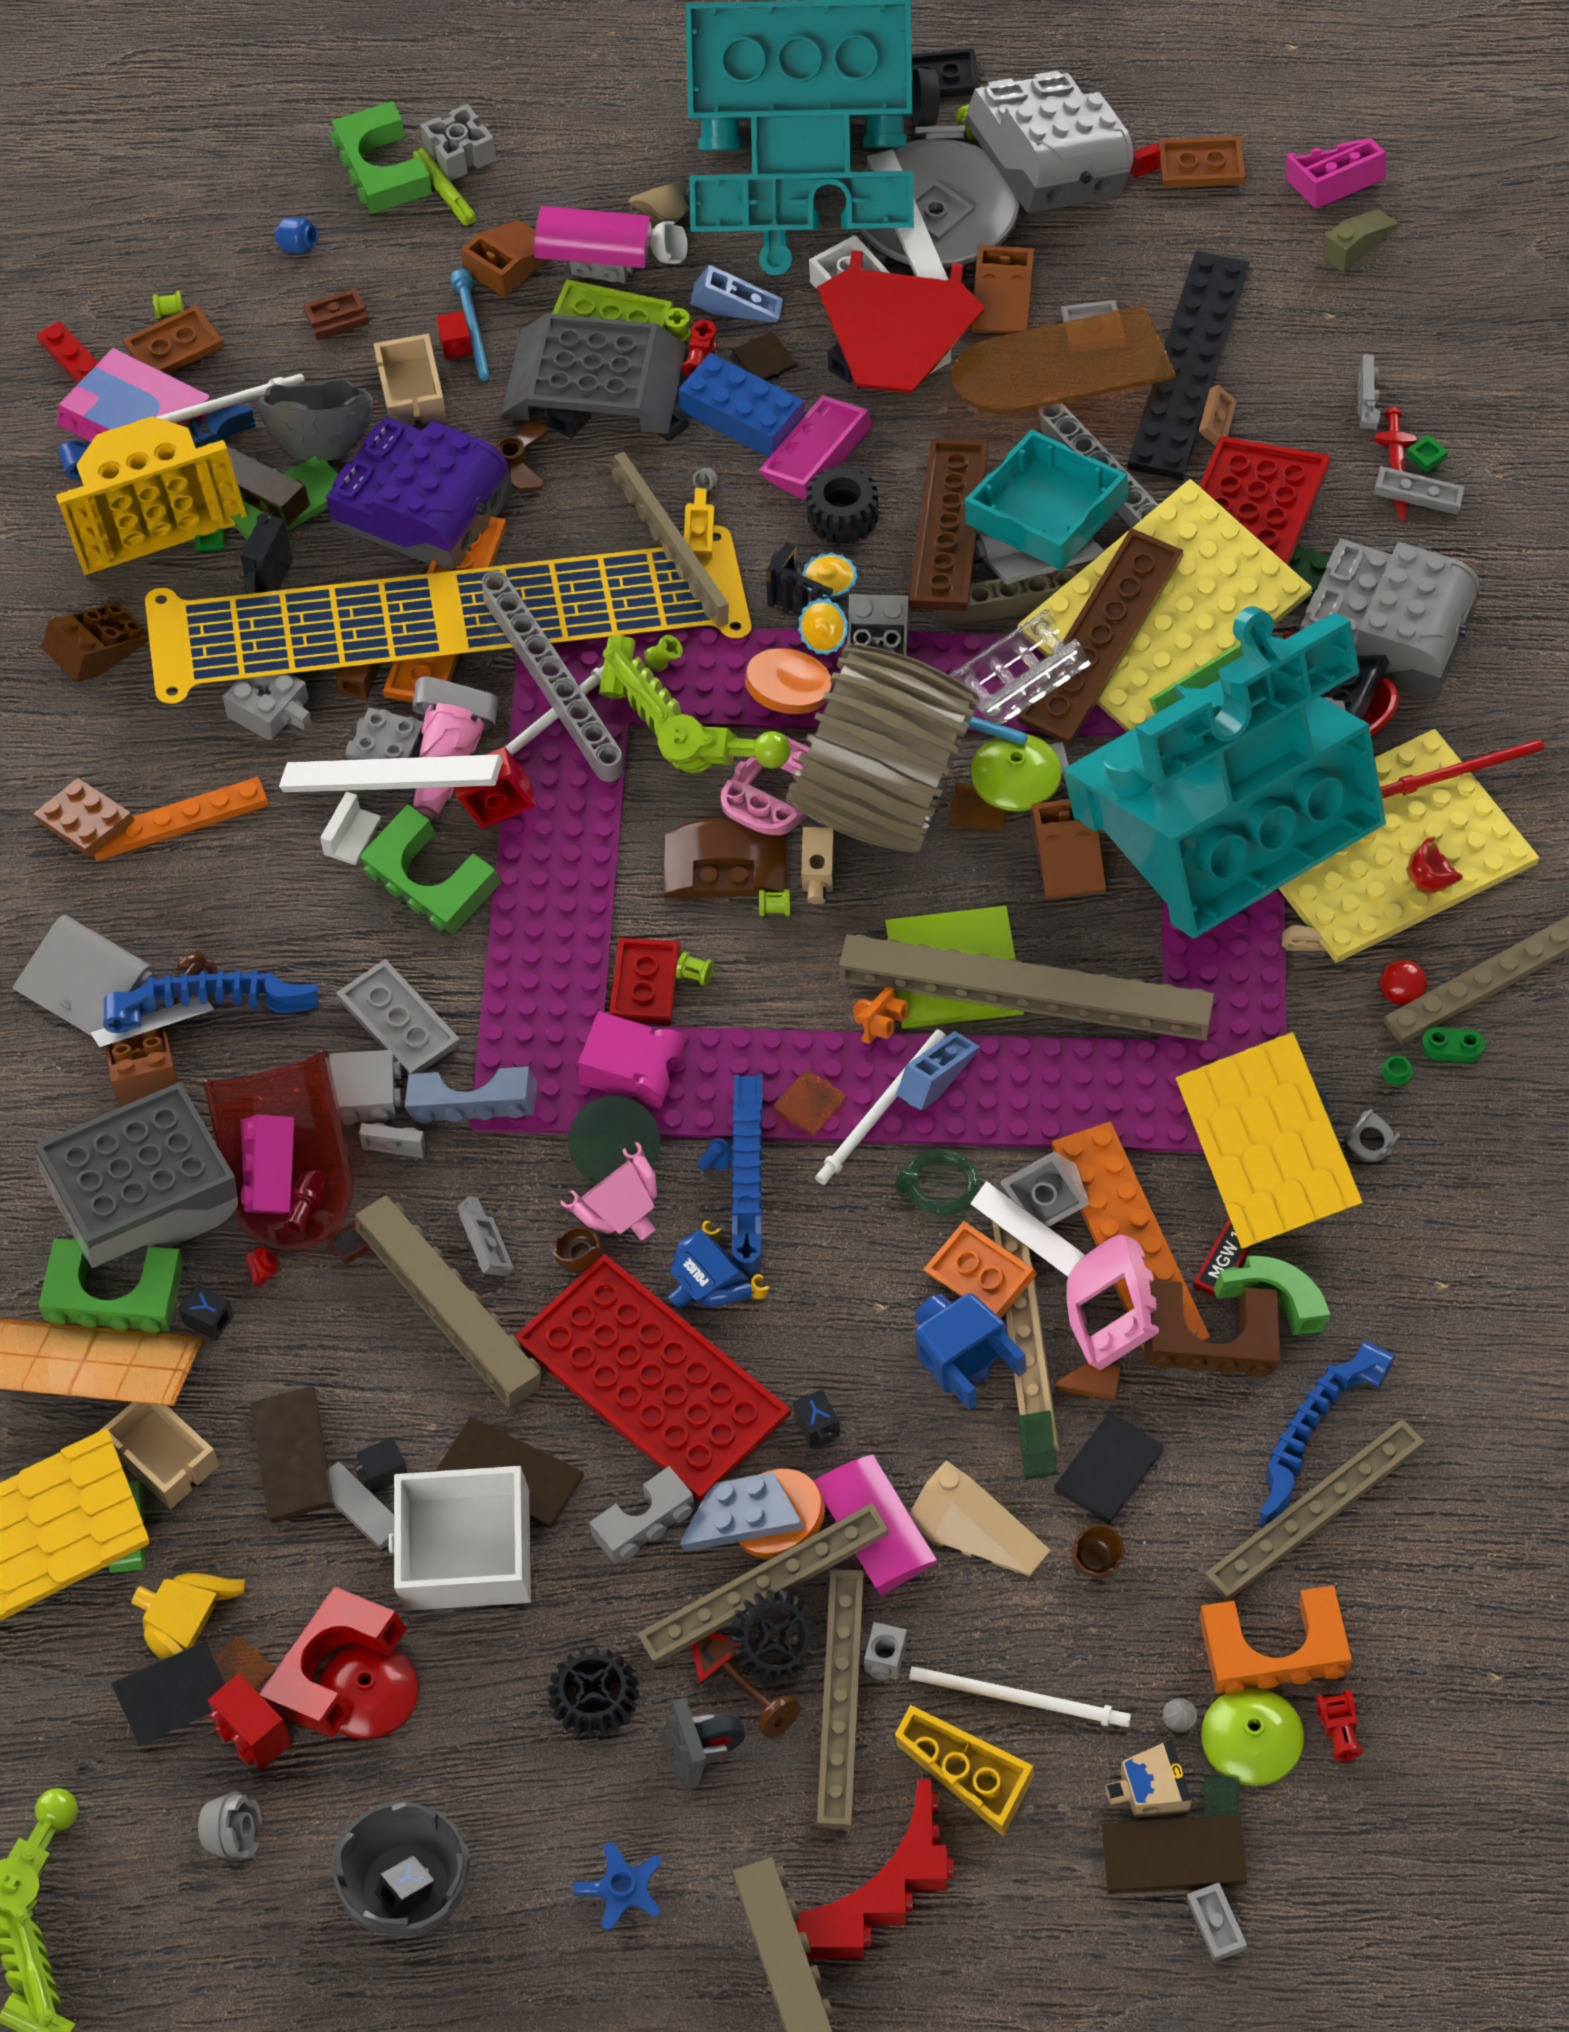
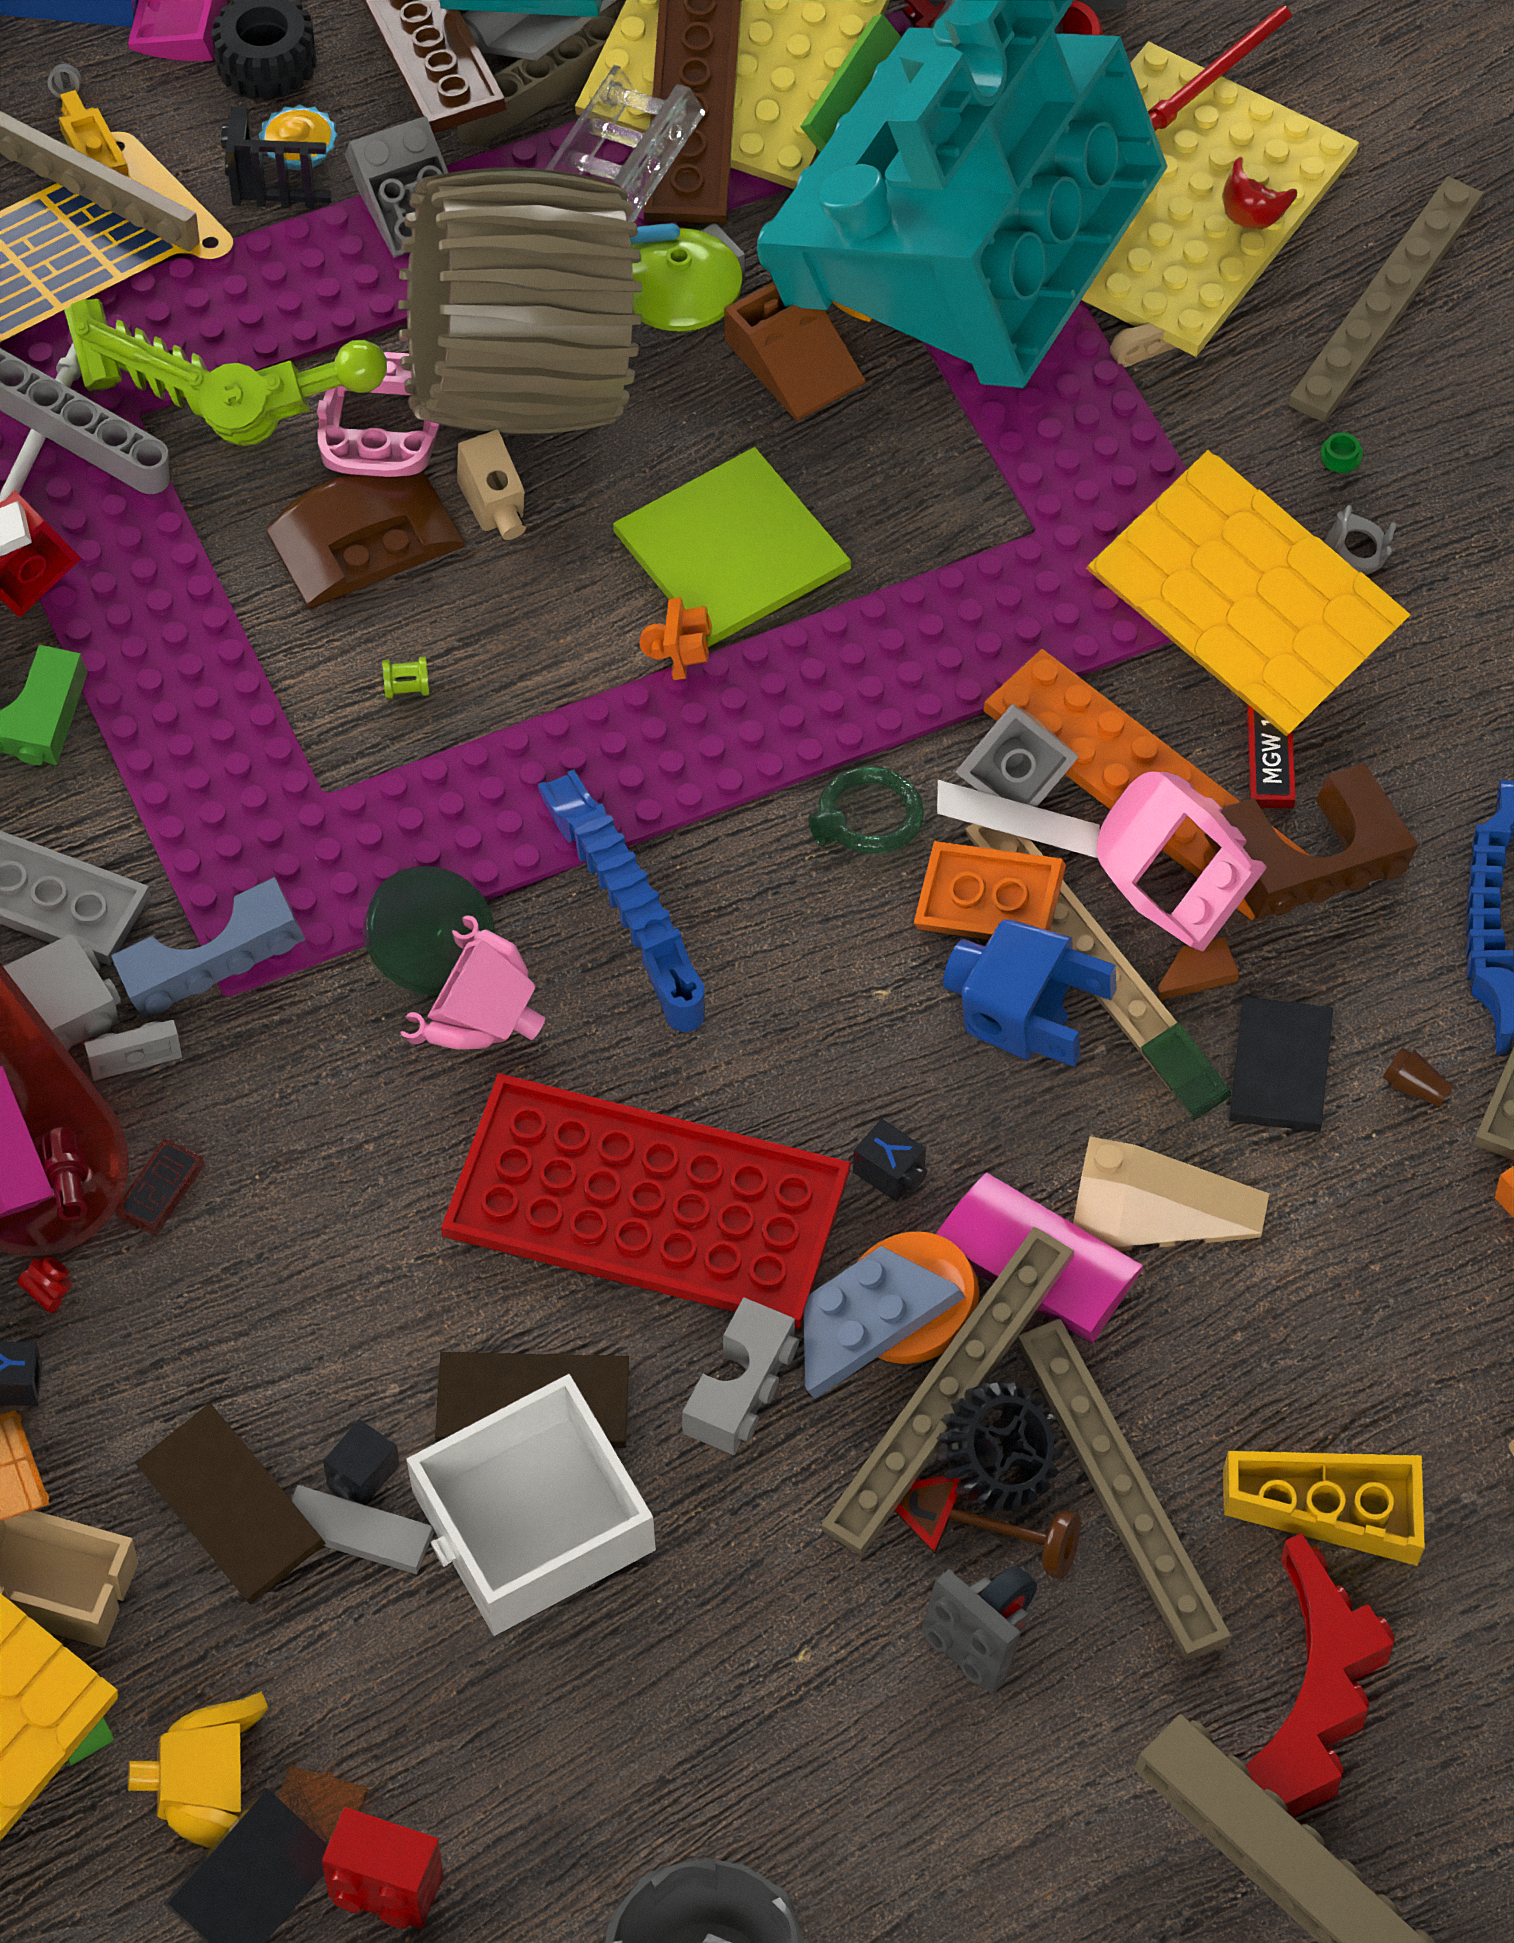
camera: 30 degrees left, 0 degrees up
(338, 1622) = (423, 1685): arch -> none
(382, 1703) = (512, 1785): red dish -> none
(448, 1301) = (328, 1219): dark tan brick -> none
(484, 1238) = (327, 1120): light grey hinge -> none
(577, 1249) = (459, 1083): reddish brown hair -> none
(606, 1671) = (771, 1612): black gear -> none
(621, 1886) = (989, 1848): blue animal -> none
(629, 1058) = (394, 818): dark pink piece -> none
(645, 980) = (346, 720): red tile -> none
(667, 650) = (140, 306): lime bush -> none
(709, 1273) = (649, 1039): blue torso -> none
(718, 1155) = (570, 893): blue plate -> none
(774, 902) = (460, 557): lime bush -> none
(787, 681) = (324, 280): orange piece -> none
(809, 1102) = (651, 780): clear orange piece -> none
(823, 626) = (332, 196): yellow piece -> none
(833, 1163) = (726, 841): white bar -> none
(885, 1638) = (1150, 1388): light grey brick -> none
(935, 1070) = (791, 675): medium blue slope -> none
(973, 812) = (658, 350): clear orange piece -> none
(1026, 987) = (841, 531): dark tan brick -> none
(1098, 1551) = (1333, 1166): reddish brown hair -> none
(1105, 1715) = (1453, 1361): white bar -> none
(1191, 1516) = (1417, 1078): none -> reddish brown cone
(1296, 1292) = (1397, 763): bright green arch -> none
(1403, 982) = (1286, 347): red hair -> none
(1453, 1045) = (1389, 397): green plate -> none

